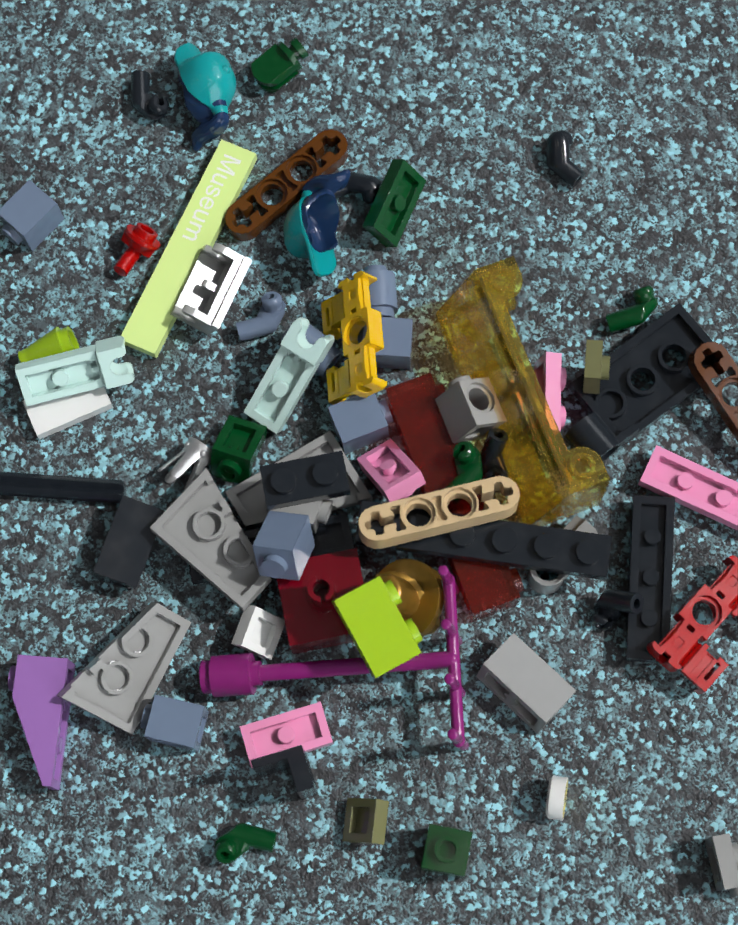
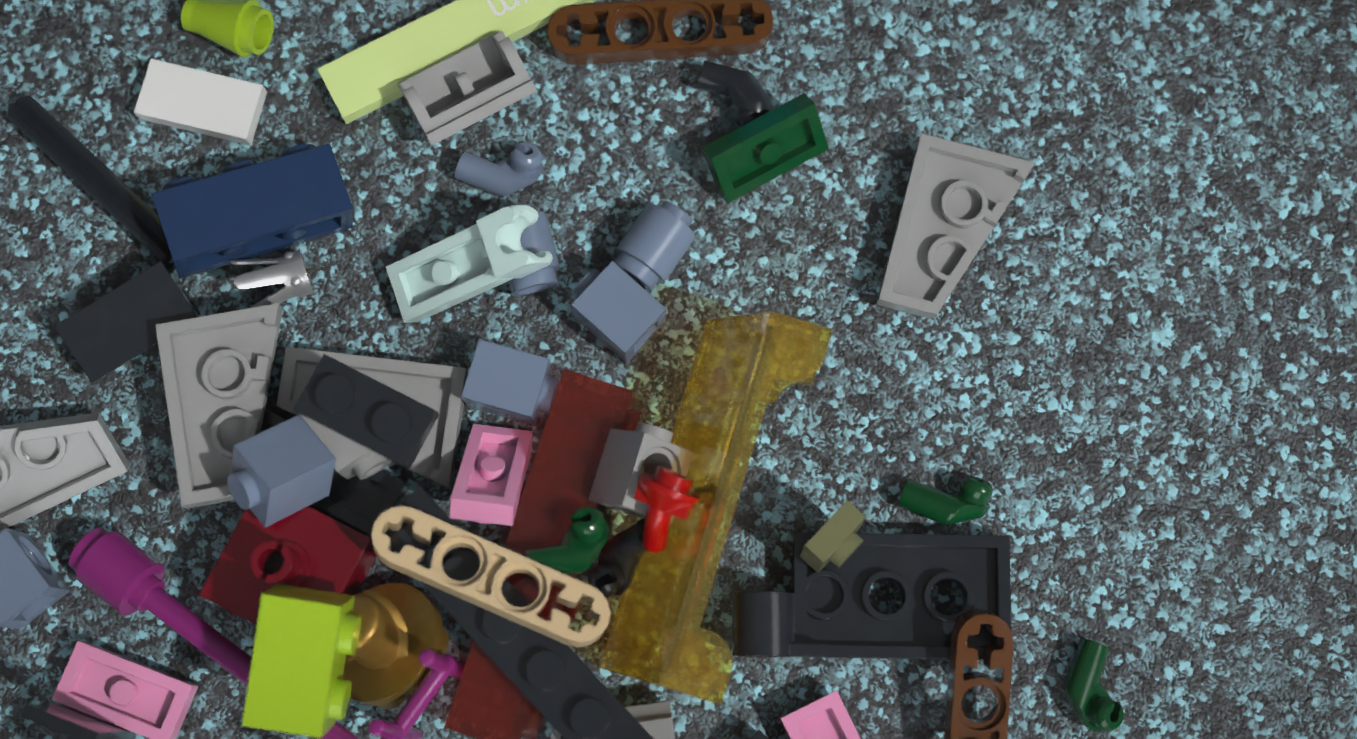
camera: 30 degrees right, 5 degrees up
(74, 371) = (228, 70): light aqua plate -> none
(148, 433) = (253, 208): none -> dark blue brick
(237, 449) = (343, 305): dark green bracket -> none
(258, 632) = (188, 544): white plate -> none
(313, 222) = (648, 101): hair -> none
(348, 314) = (591, 245): yellow piece -> none
(496, 402) = (666, 496): none -> red plate
(516, 172) = (944, 219): none -> light grey wing
(552, 382) = (772, 510): bright pink plate -> none
(559, 157) = (1011, 239): black arm -> none

